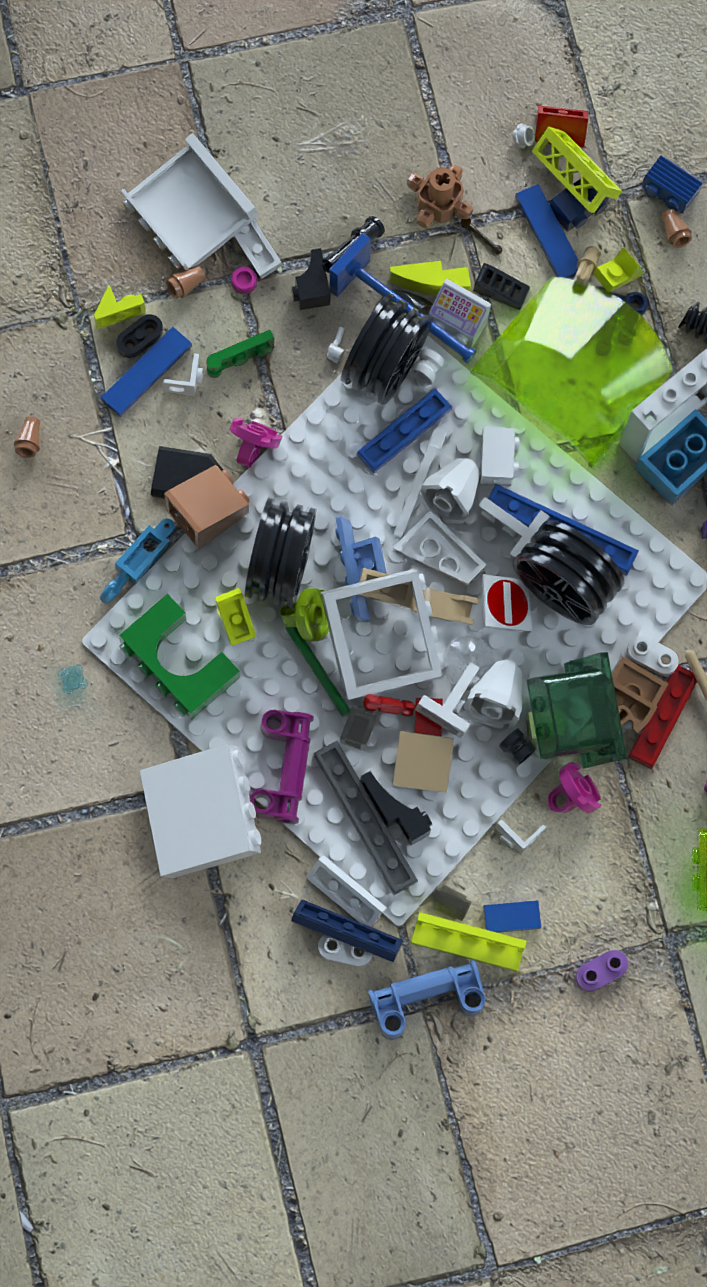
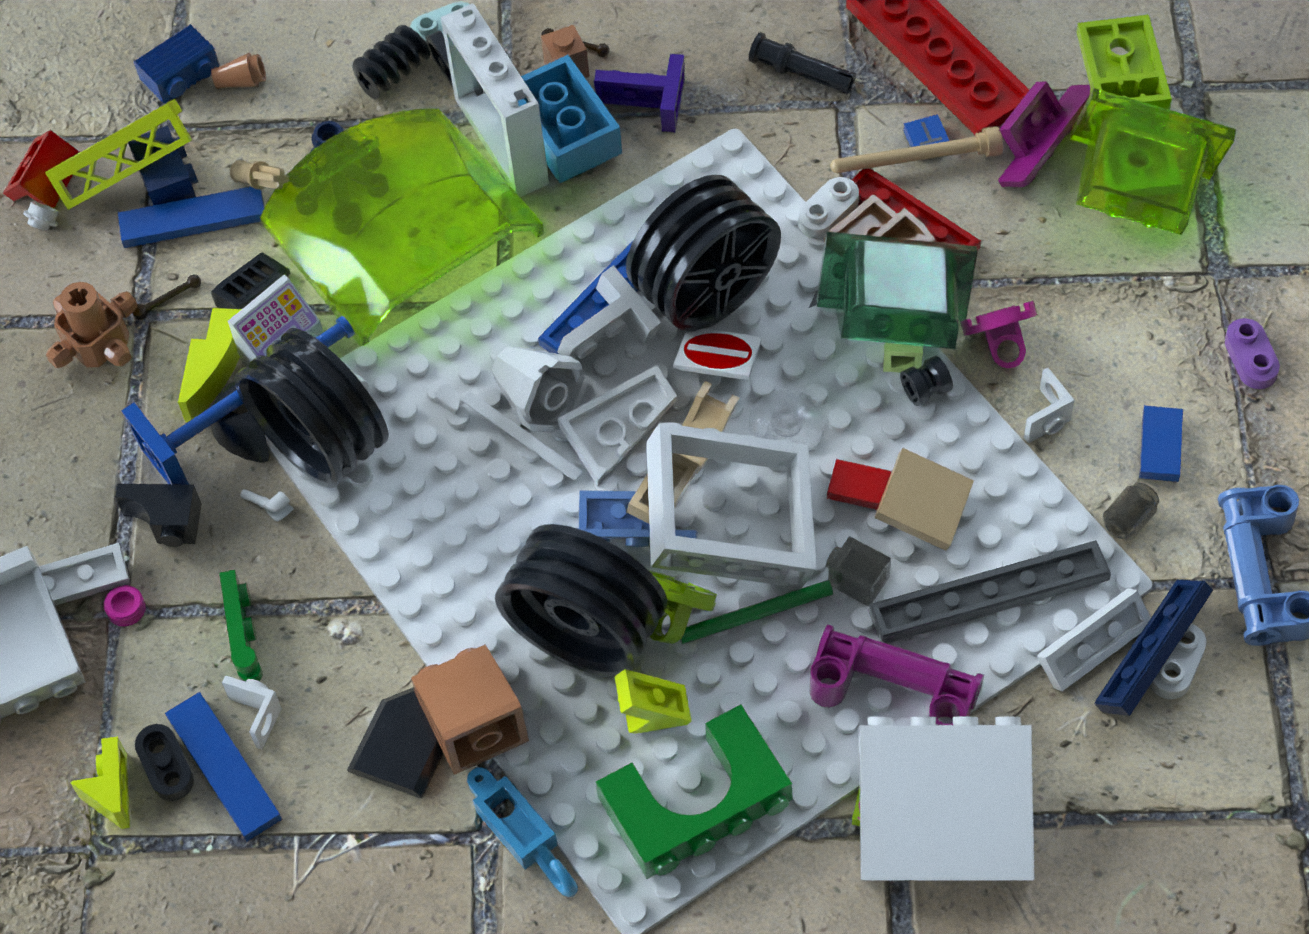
camera: 65 degrees left, 15 degrees down
(184, 282) = (101, 686): nougat cone -> none
(254, 437) = (378, 626): dark pink tile -> none
(373, 231) = (143, 465): black pin -> none
(388, 705) = (833, 524): red axle -> none
(404, 430) = (426, 437): blue tile -> none
(412, 822) = (1012, 529): black slope -> none
(443, 714) = (859, 451): white bracket -> none
(468, 942) = (1190, 502): neon yellow fence -> none
(497, 456) = (496, 322): white brick -> none
(497, 696) = (850, 386): white cone -> none
(618, 271) = (277, 137): neon yellow slope -> none

